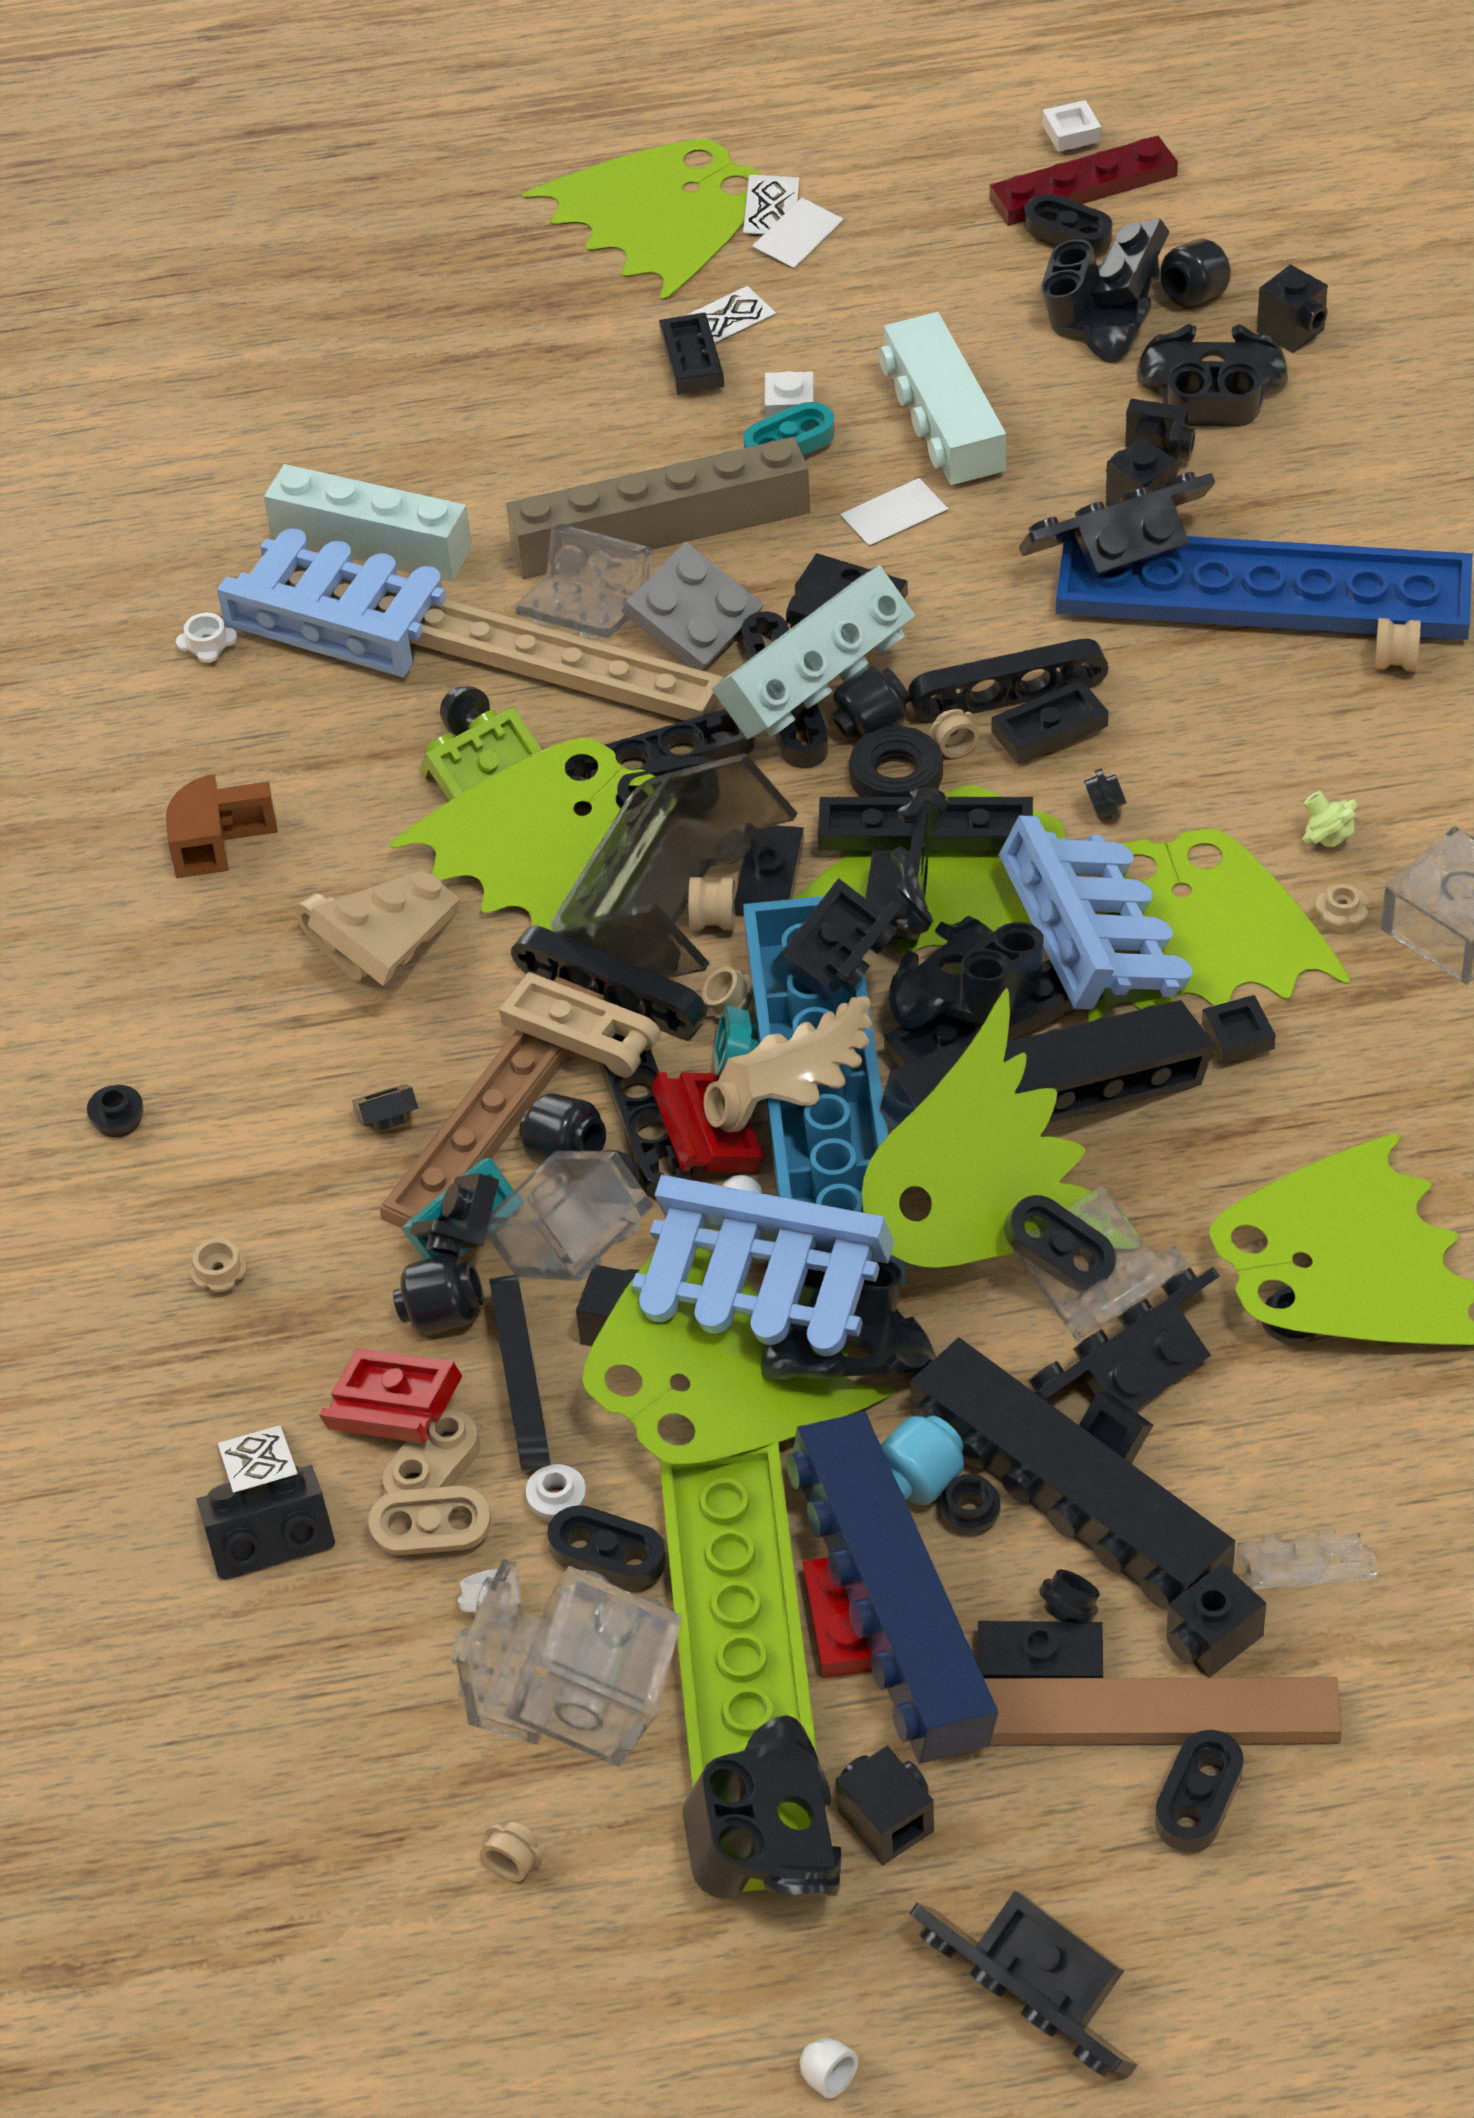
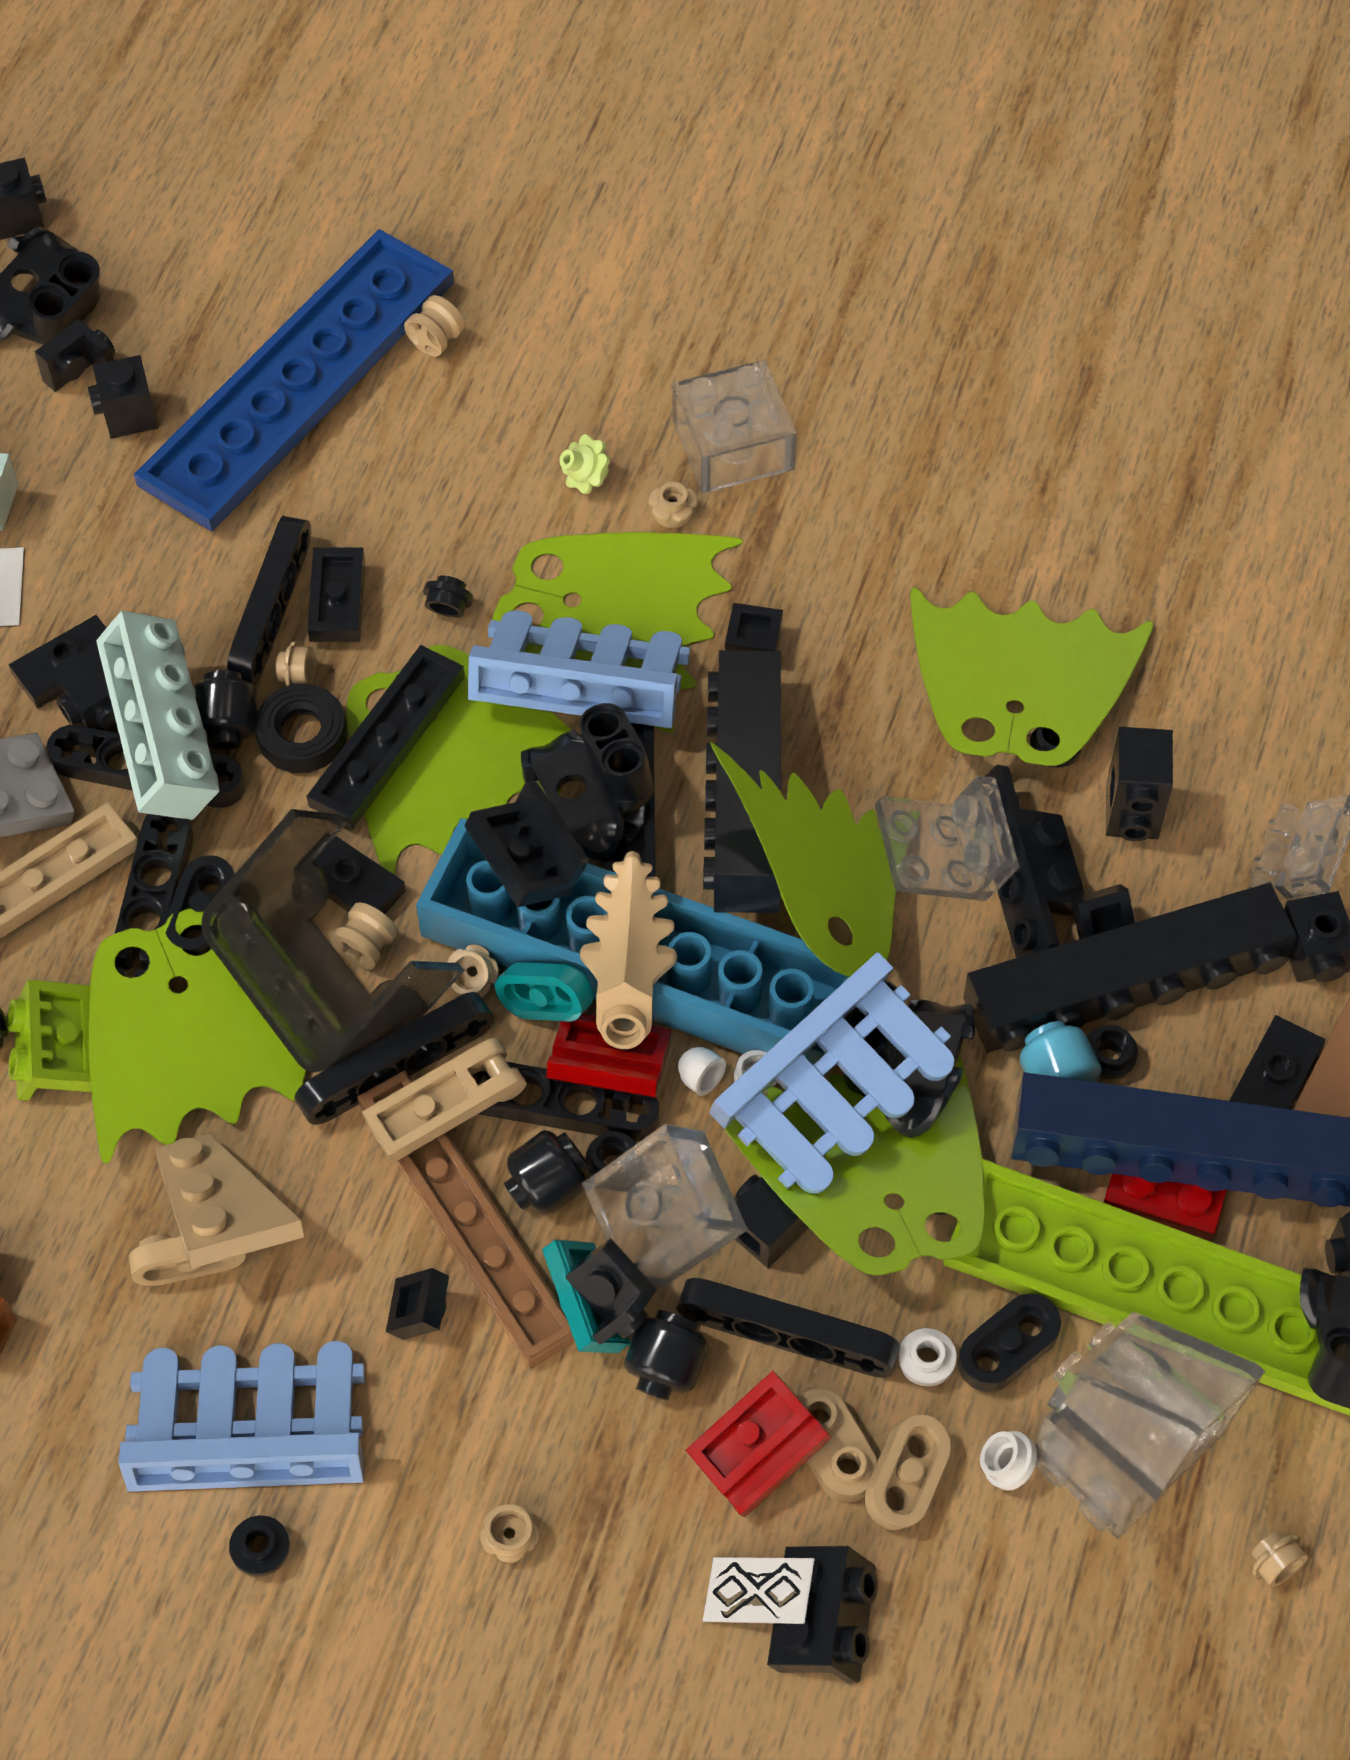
camera: 65 degrees left, 10 degrees up
(197, 1076) = (247, 1452): none -> light blue fence
(904, 873) = (447, 783): black piece -> none
(1060, 1239) = (926, 853): black plate -> none
(1069, 1597) = (1242, 1025): black plate -> none
(1125, 533) = (184, 430): black bracket -> none
(1272, 1385) = (1139, 783): none -> black brick

